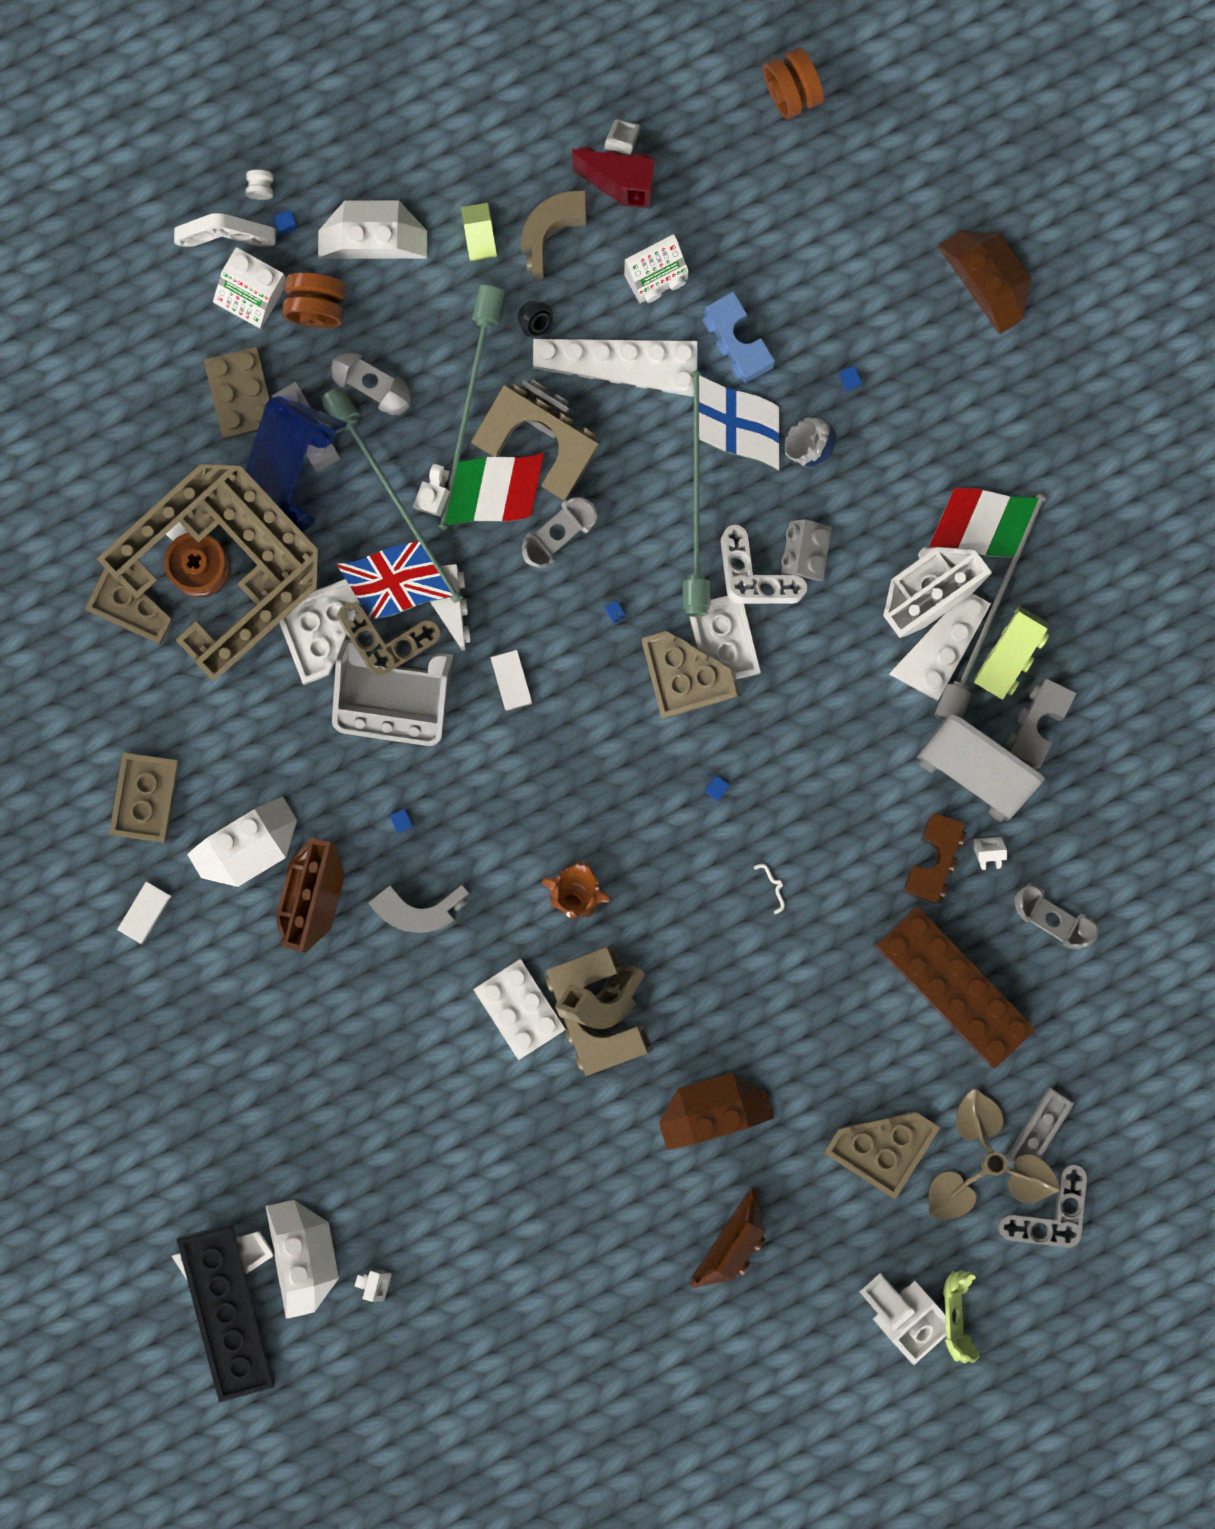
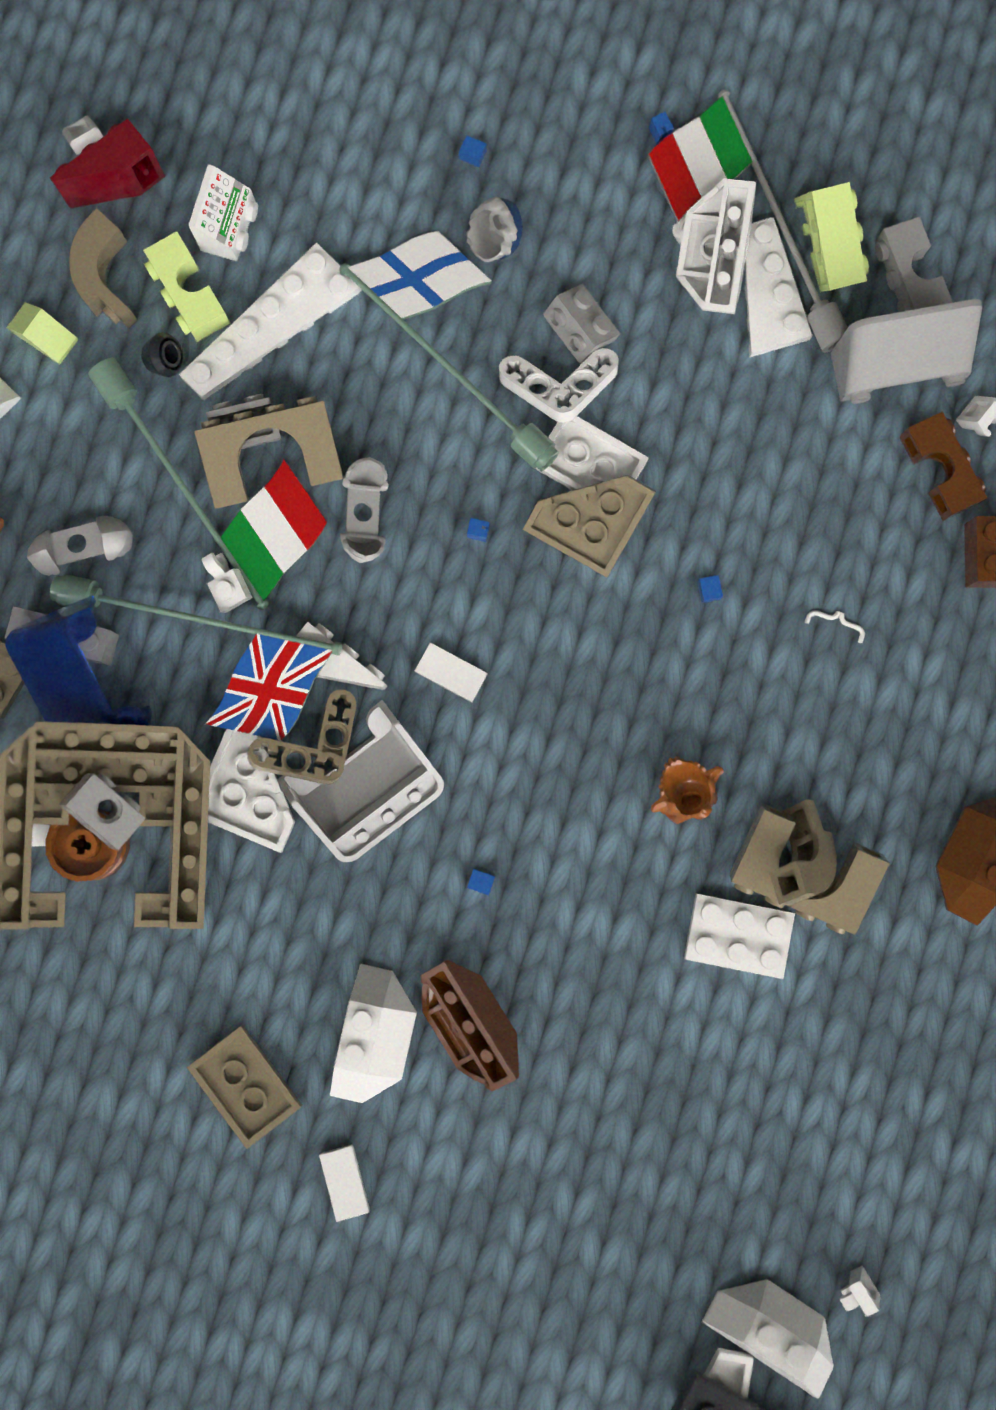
camera: 50 degrees left, 0 degrees up
(117, 605) = (54, 948): dark tan wing -> none
(222, 538) = (83, 805): none -> light grey brick
(401, 915) = (574, 955): light grey arch -> none
(595, 267) = (172, 265): none -> yellowish green arch
(747, 359) = (372, 216): medium blue arch -> none
(980, 479) = (660, 127): none -> blue piece

